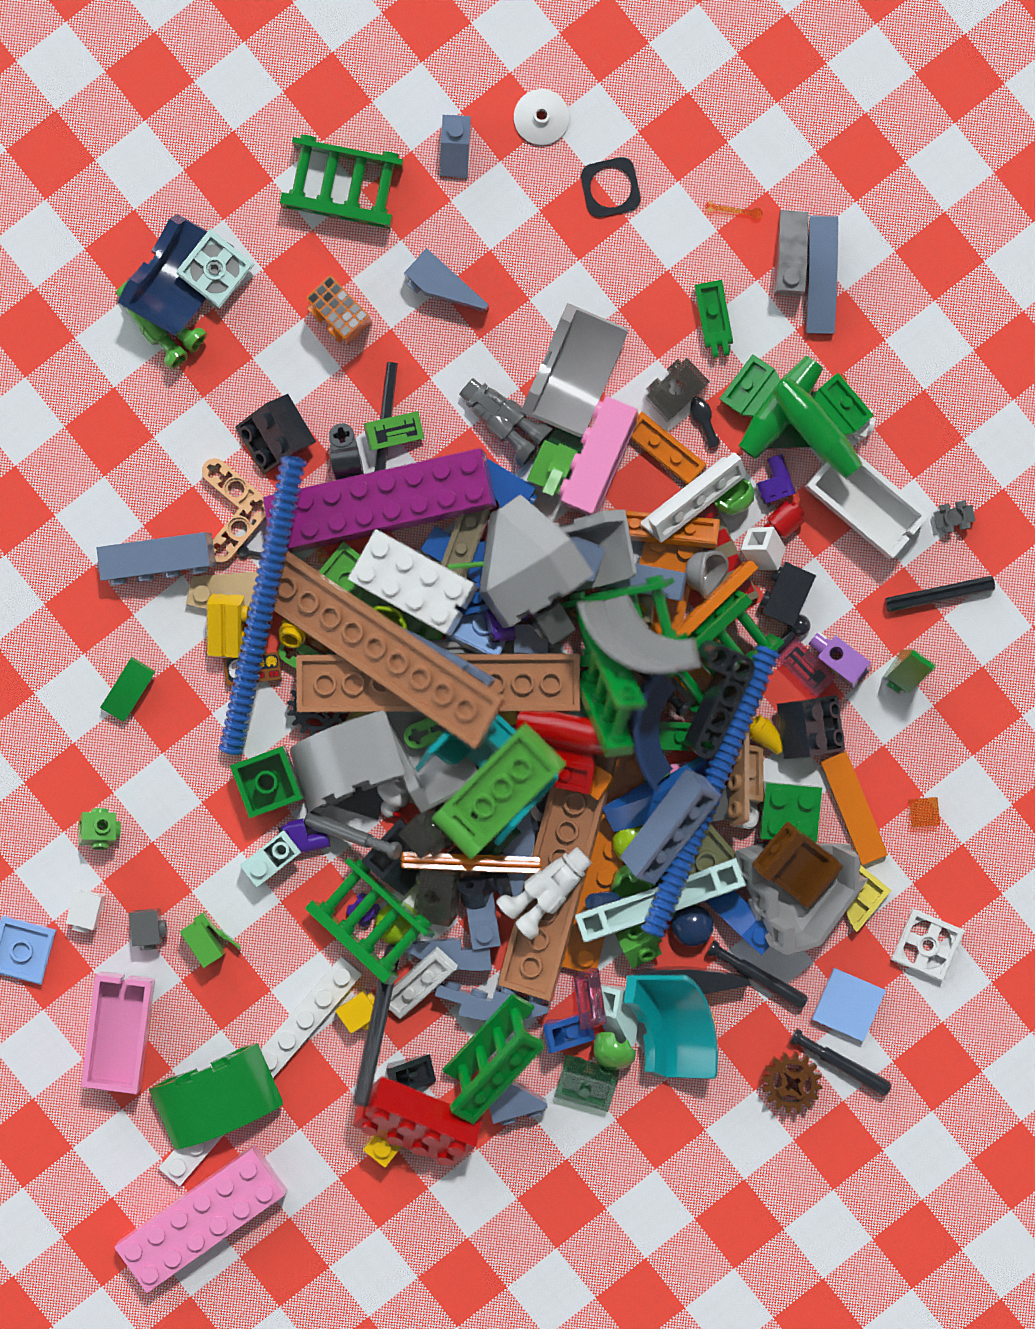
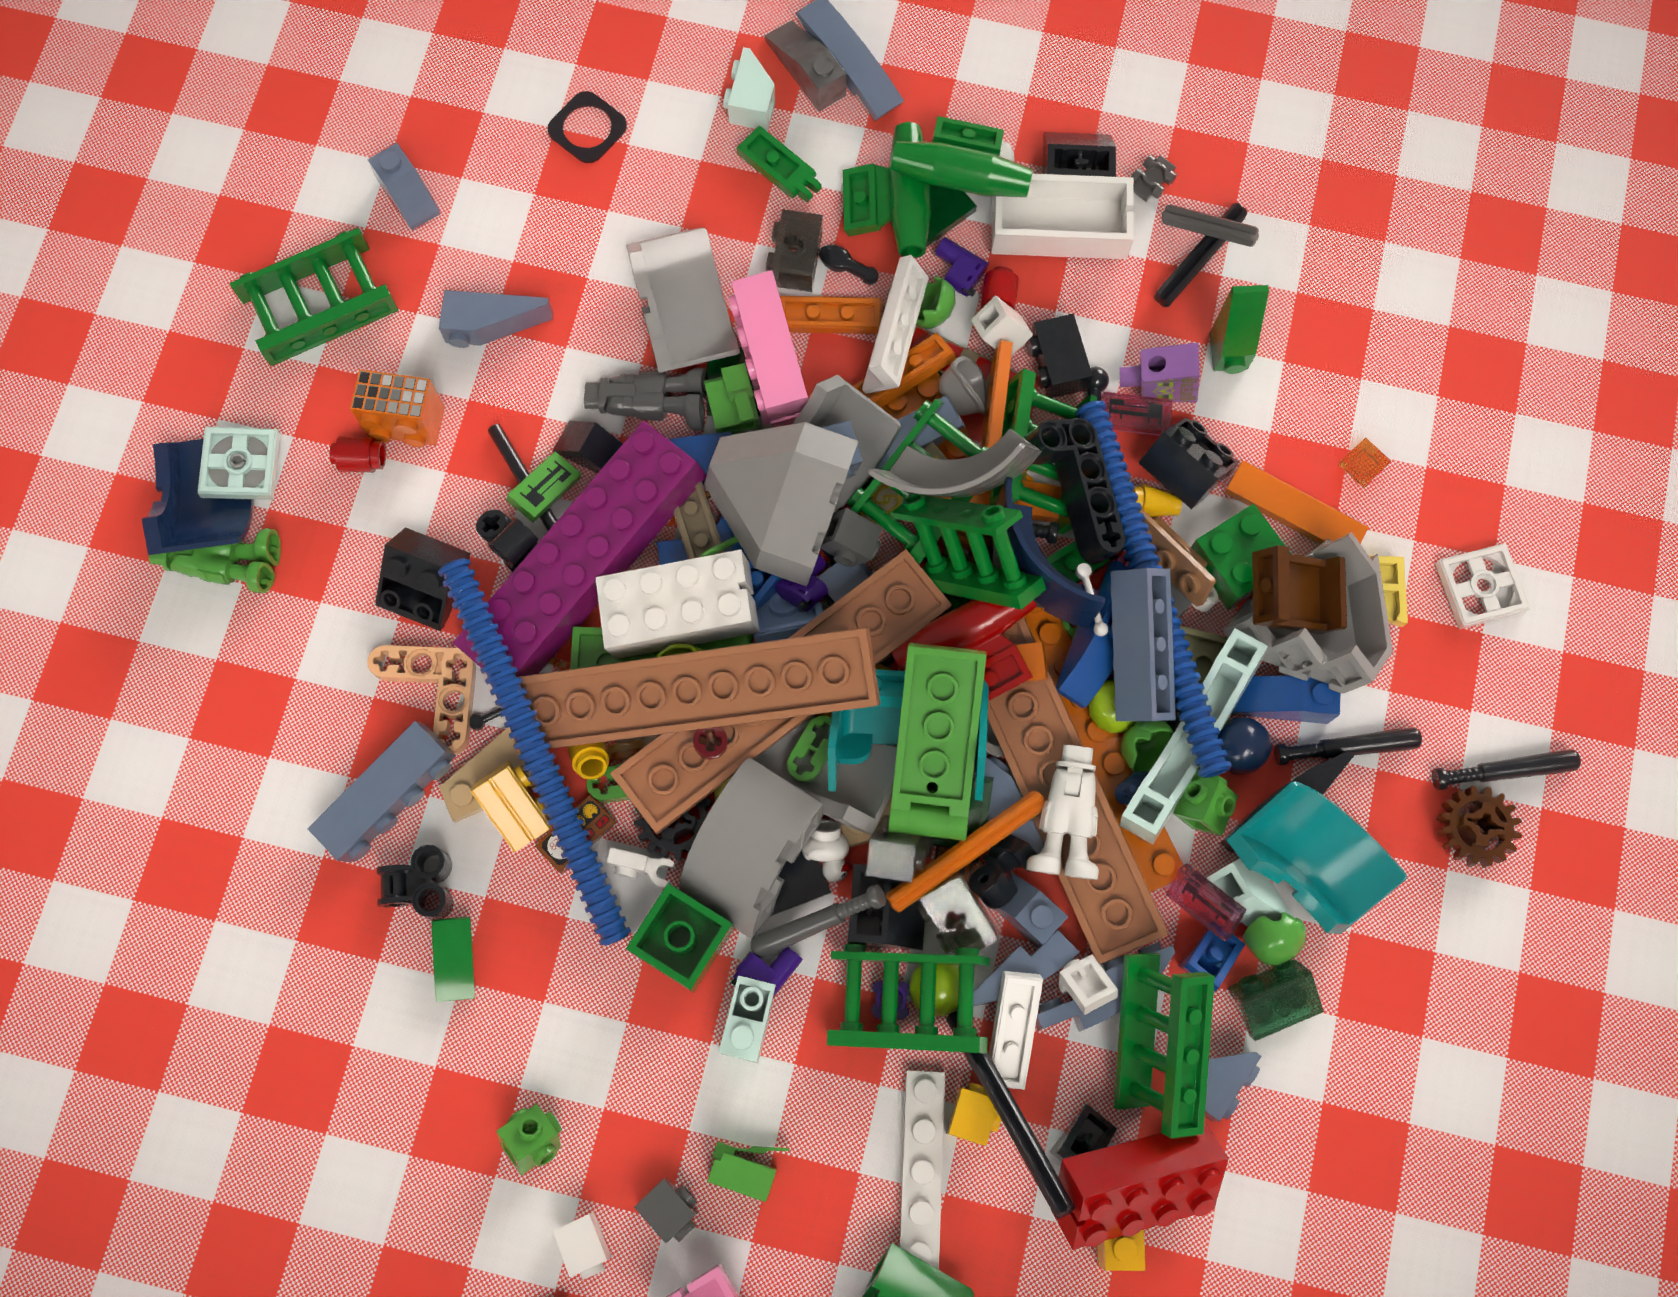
camera: 45 degrees left, 15 degrees down
(136, 626) = (411, 885): none -> black piece
(271, 713) = (630, 864): none -> white plate
(293, 318) = (358, 454): none -> red brick
(359, 684) = (701, 748): none -> dark red bush
(443, 425) = (587, 445): none -> black slope
(479, 991) = (1087, 984): none -> white bracket
(536, 130) = (471, 124): white dish -> none
(673, 753) = (1083, 572): none -> white hinge
(735, 252) = (752, 94): none -> light aqua slope
(756, 213) = (696, 77): clear orange hinge -> none
(848, 1004) = (1461, 704): light blue tile -> none
(913, 467) = (1079, 154): none -> black slope
(958, 581) = (1210, 225): none -> dark grey axle

